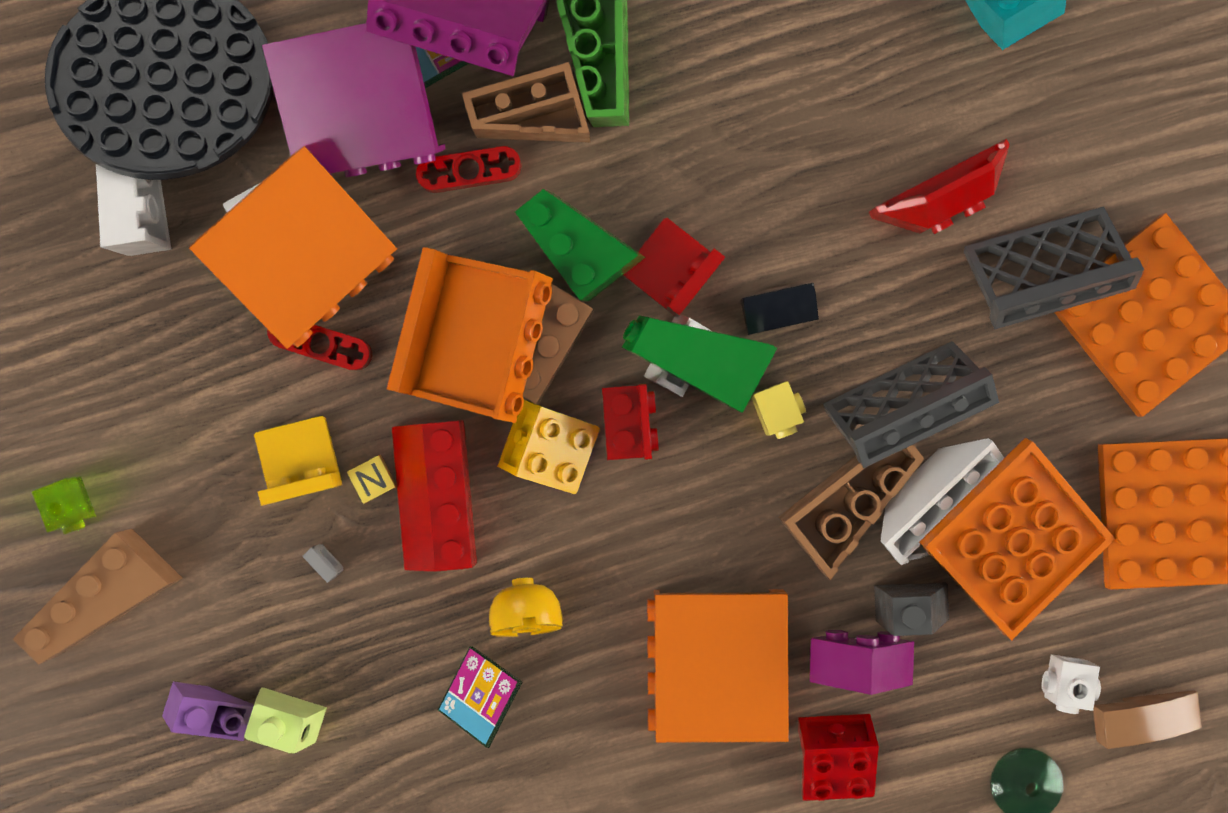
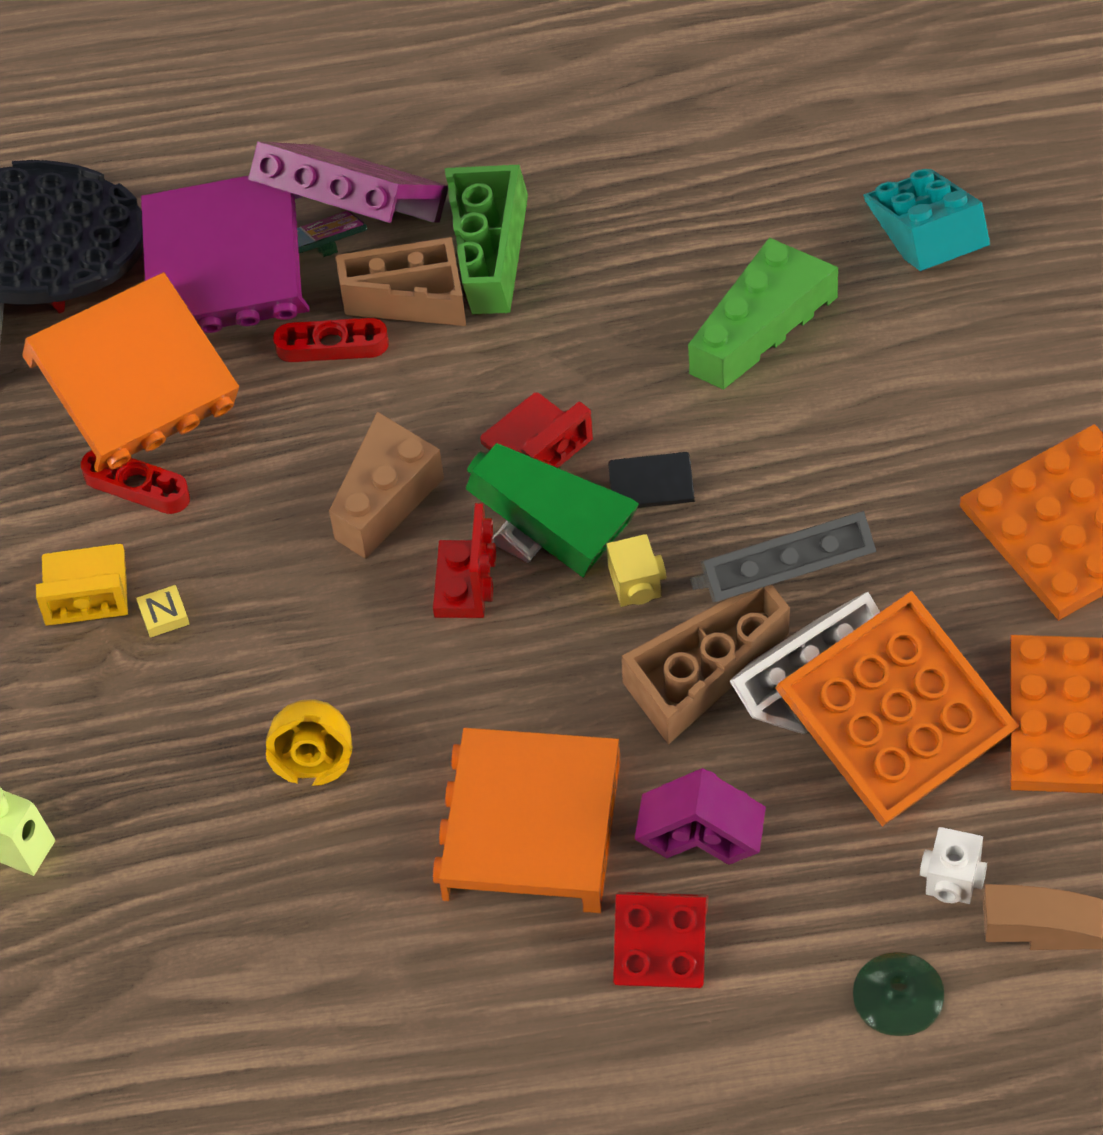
camera: 15 degrees right, 35 degrees down
(323, 562) = (89, 680): light grey tile -> none
(434, 496) = (231, 626): red slope -> none
(470, 334) = (298, 468): orange panel -> none
(480, 696) = (239, 825): piece -> none
(548, 447) = (371, 589): yellow bracket -> none
(576, 245) = (438, 400): green wedge -> none
(867, 101) = (759, 310): none -> bright green wedge
(912, 608) = (768, 761): dark grey slope -> none
(946, 194) = (843, 384): red wedge -> none
(1069, 289) = (969, 470): dark grey fence -> none

